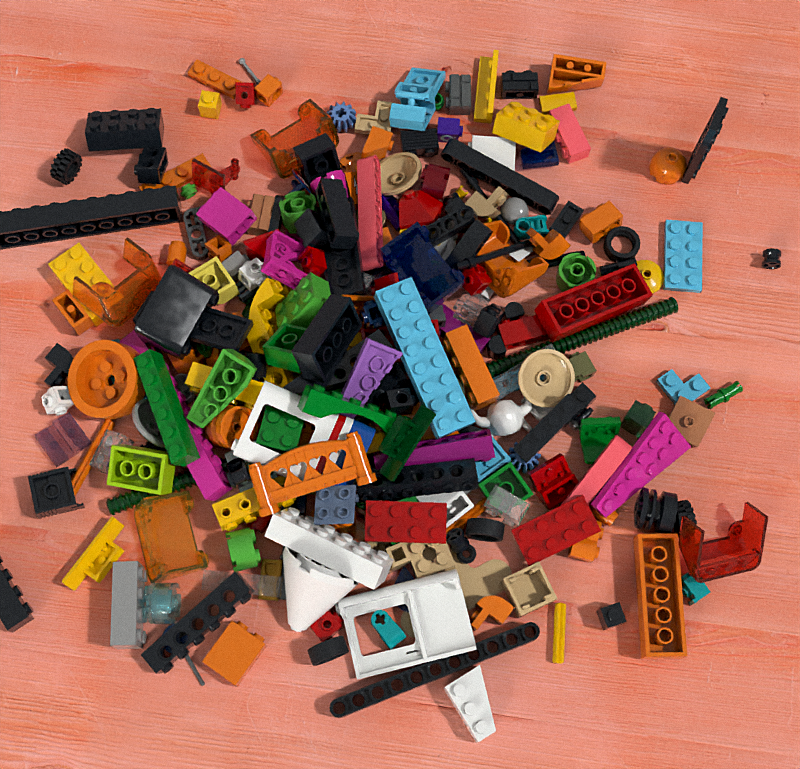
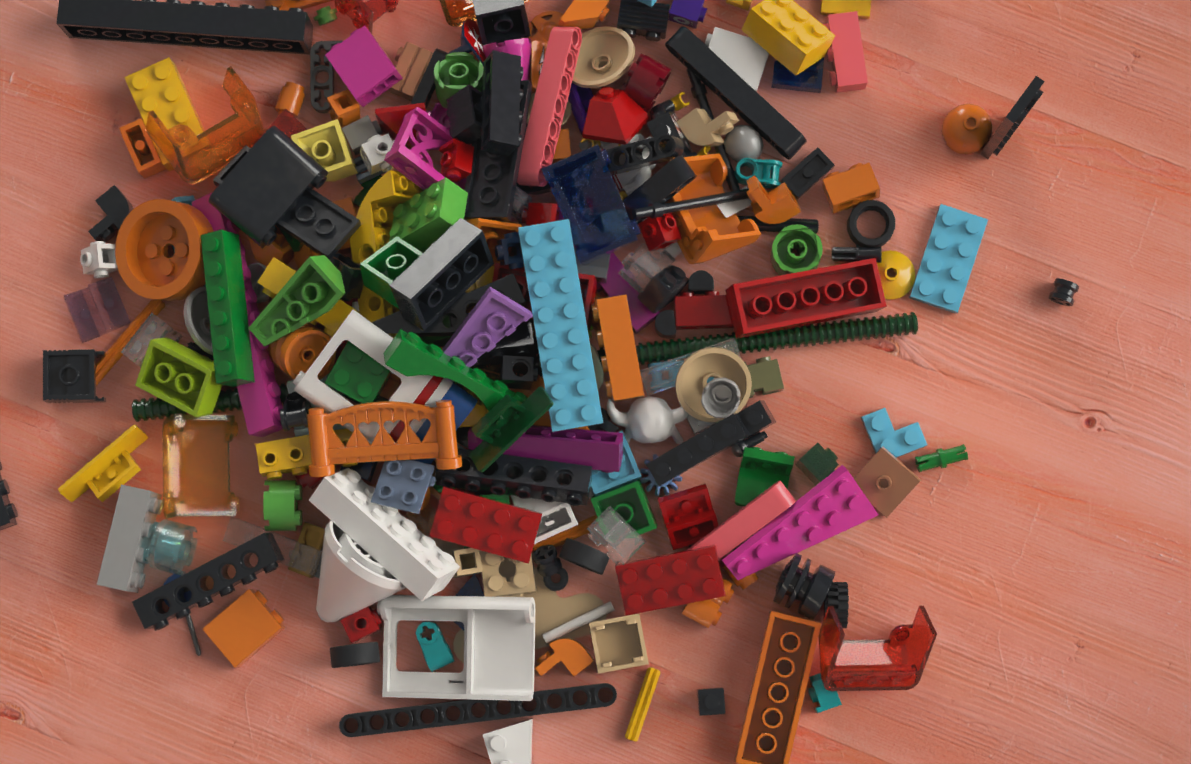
camera: 25 degrees right, 10 degrees up
(492, 583) = (578, 622): none -> white bar
(556, 384) = (721, 397): none -> light grey hair

